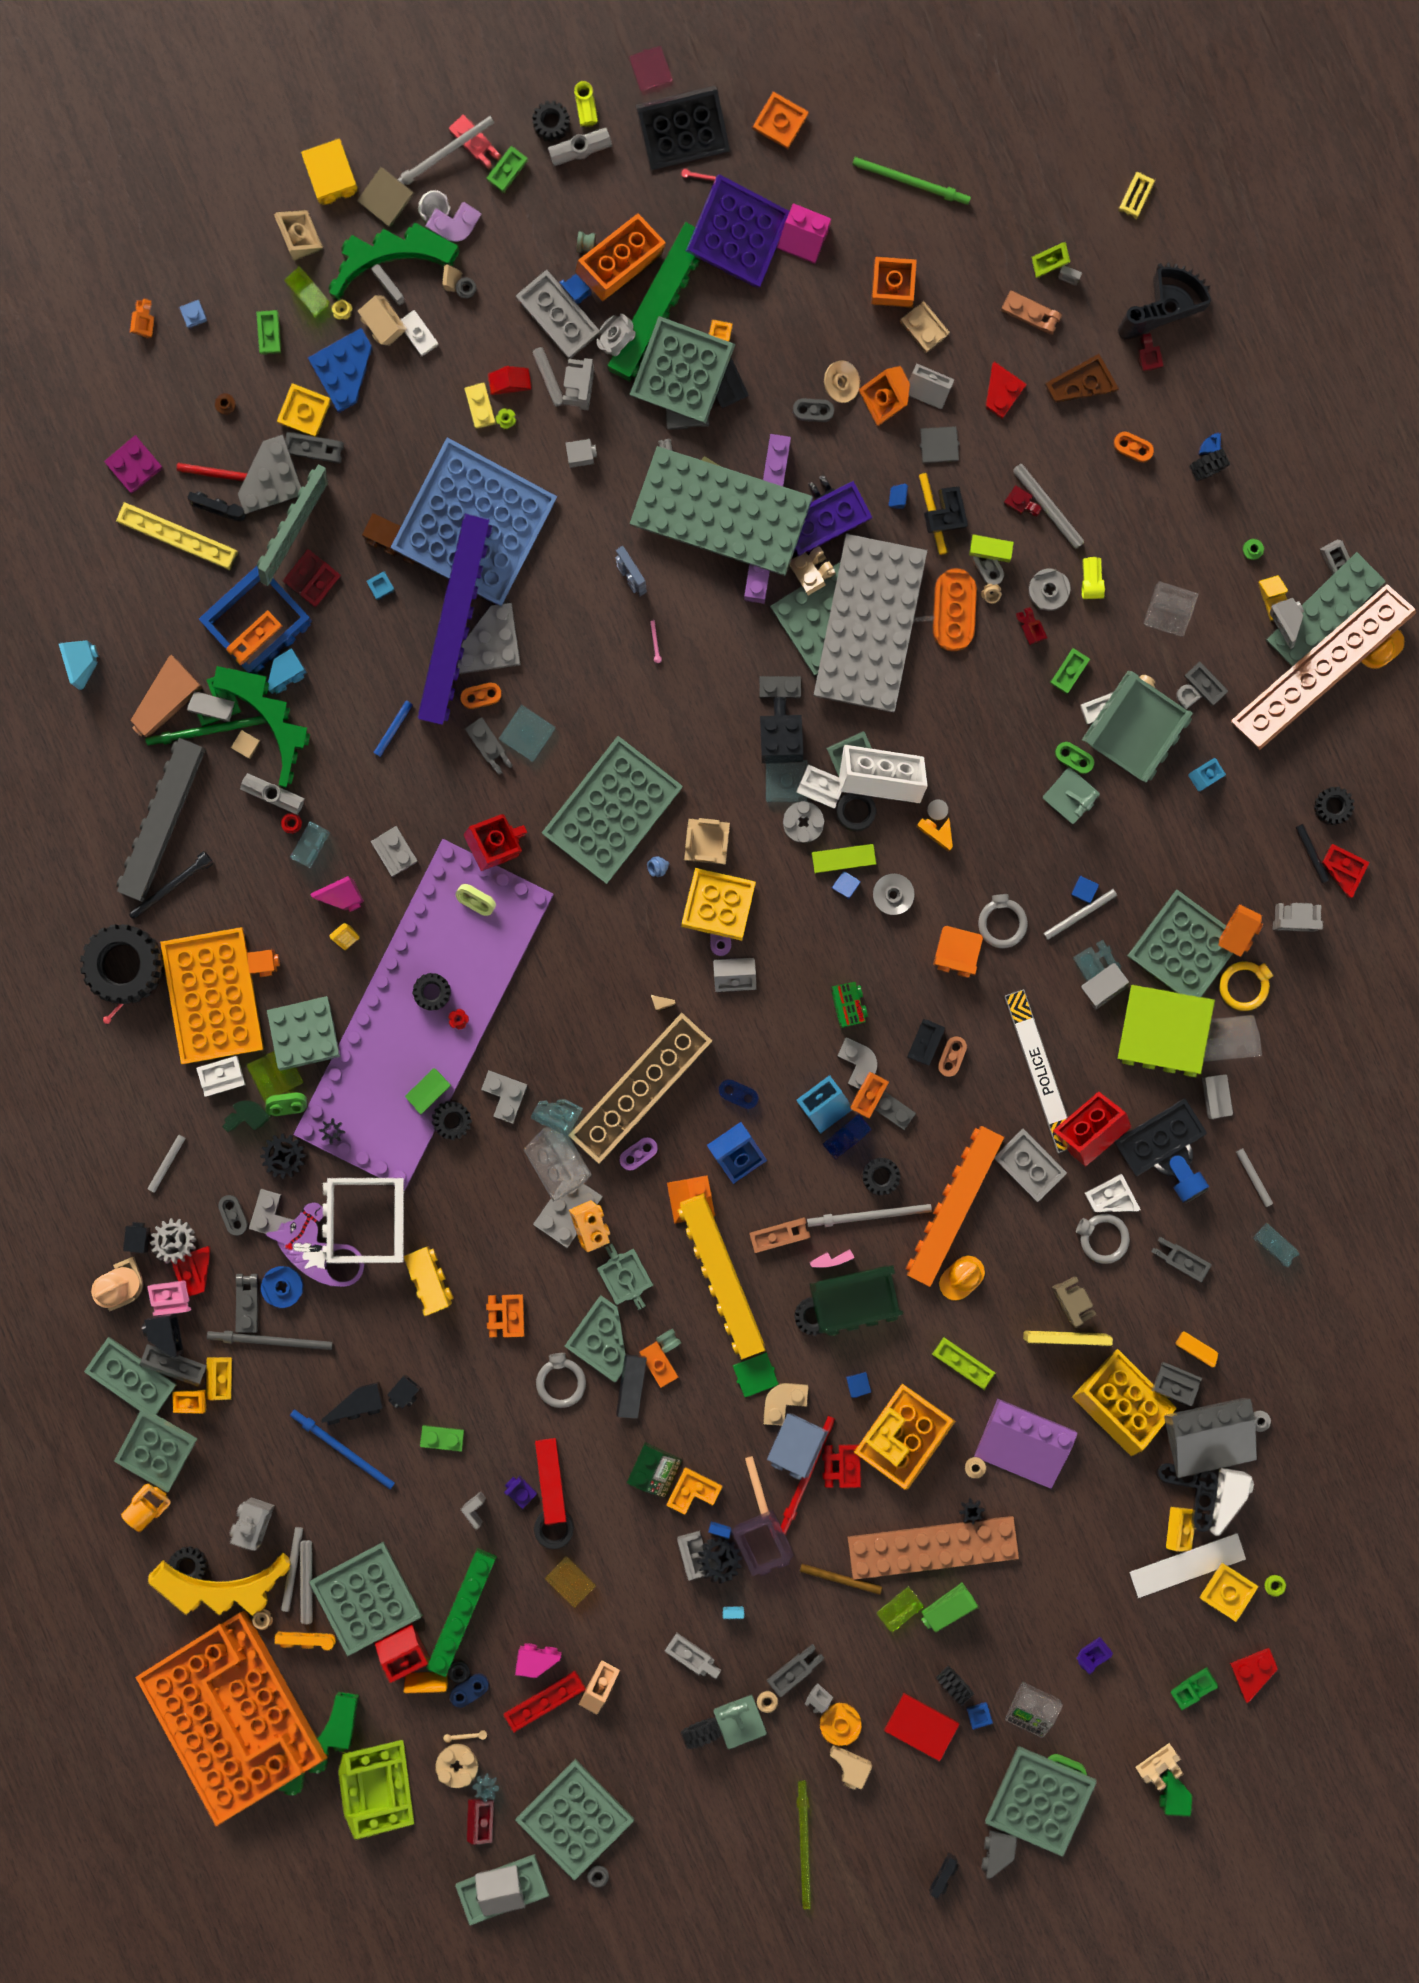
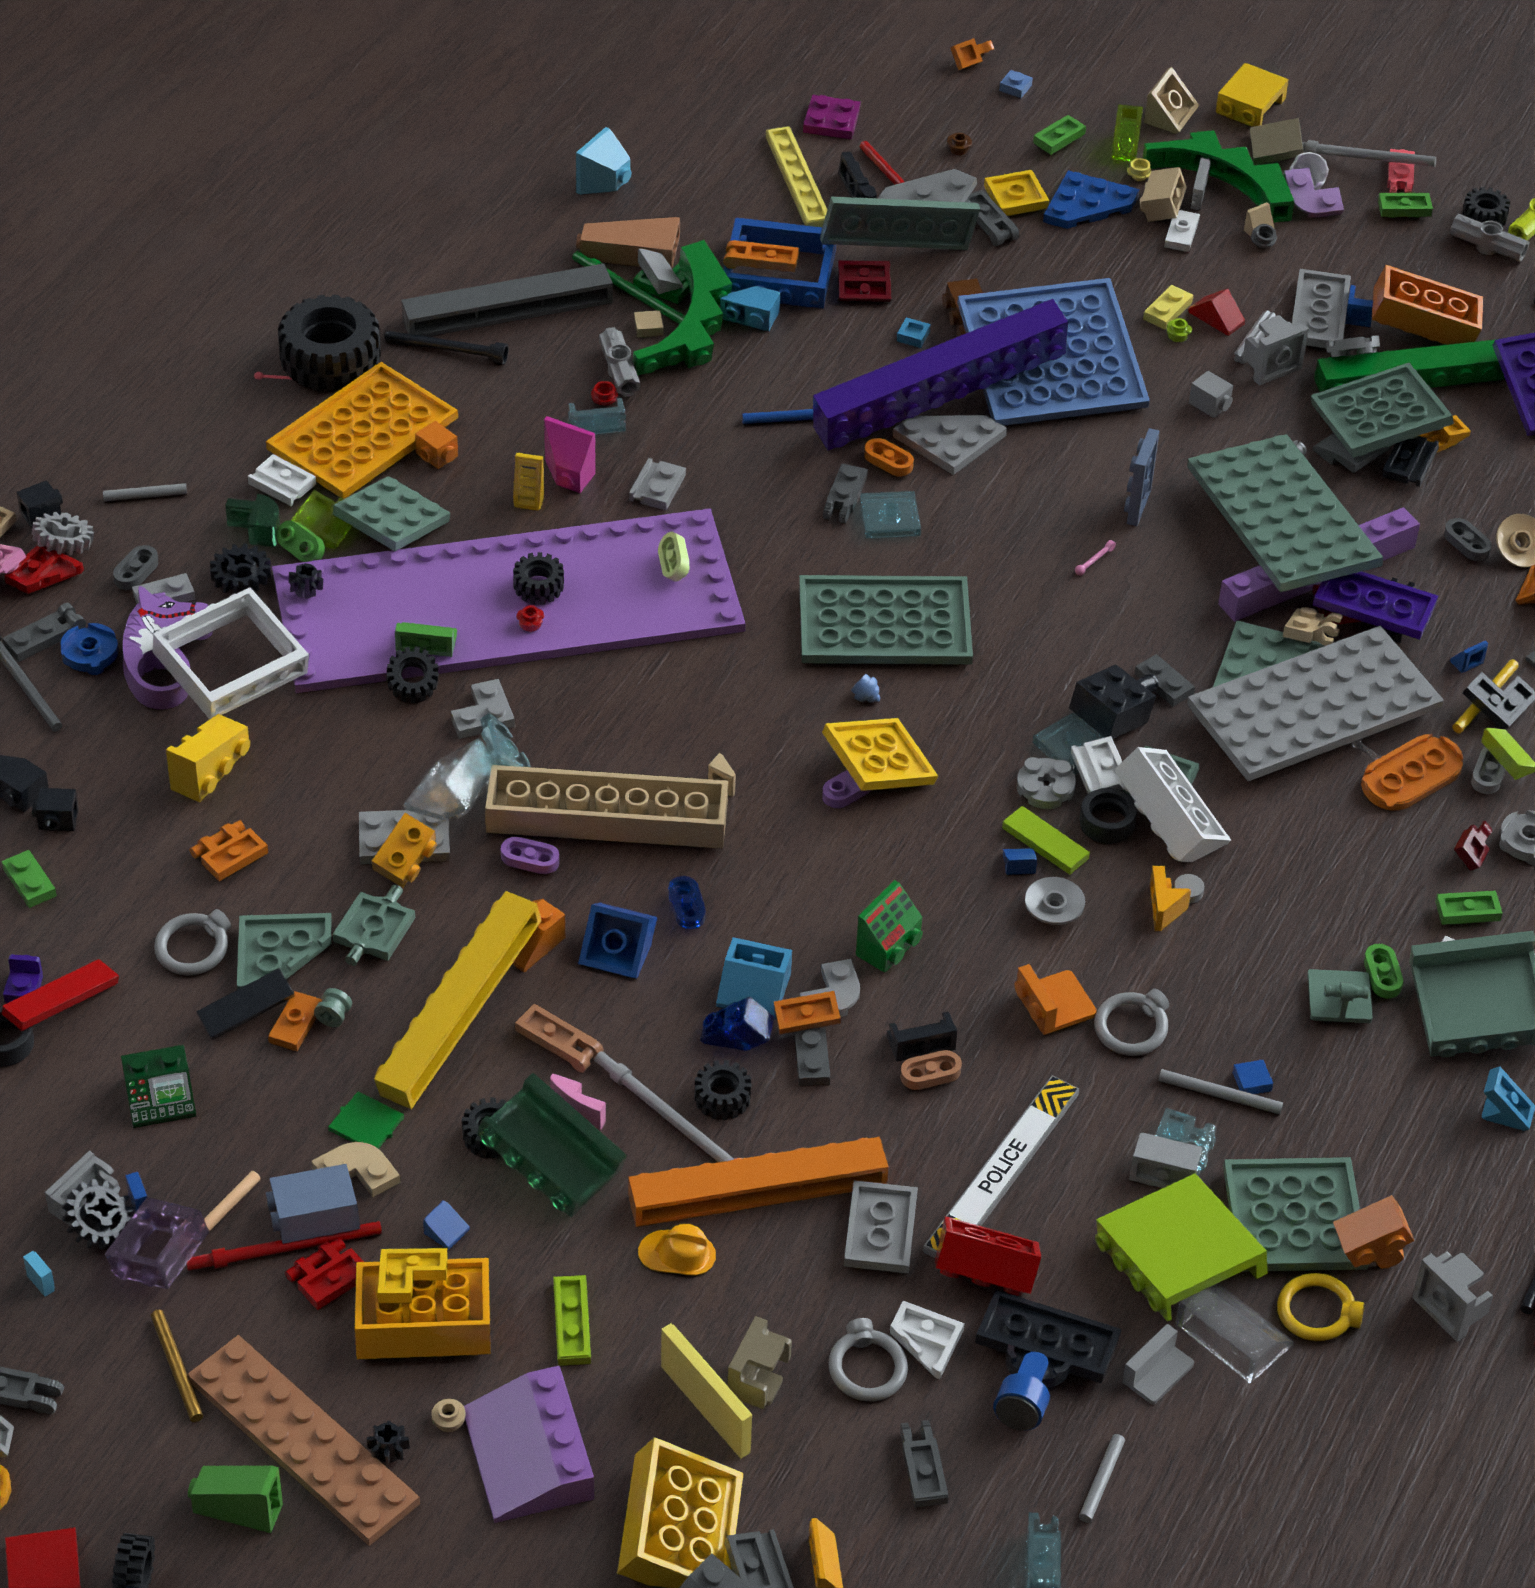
camera: 45 degrees right, 40 degrees down
(494, 841) = (752, 538): red hinge -> none
(691, 1485) = (164, 1134): light orange plate -> none
(707, 841) = (938, 712): tan panel -> none
(734, 974) = (815, 821): light grey panel -> none
(900, 1609) = (185, 1455): clear neon green slope -> none
(991, 598) = (1459, 789): tan plate -> none

